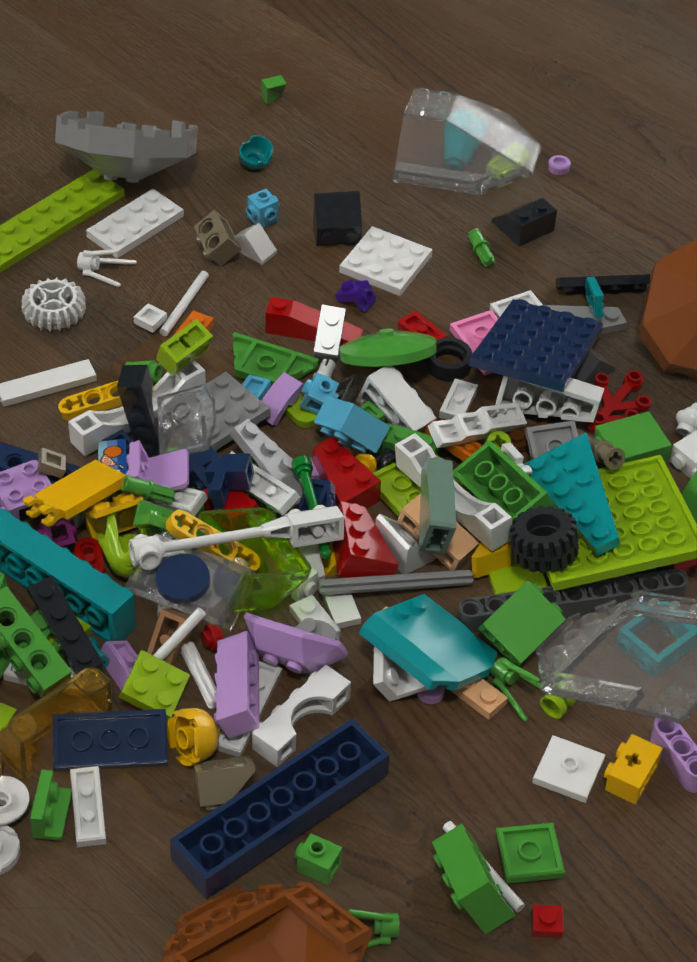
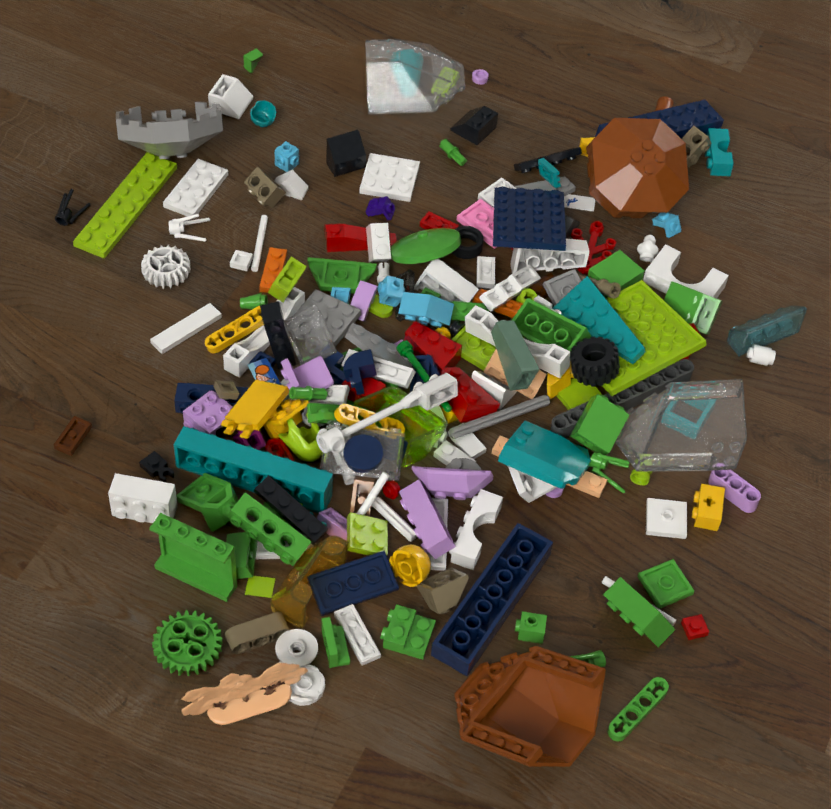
camera: 20 degrees left, 5 degrees up
(152, 820) = (407, 632): none -> bright green plate
(223, 124) = (231, 96): none -> white slope
(623, 343) = (579, 202): none -> white sticker

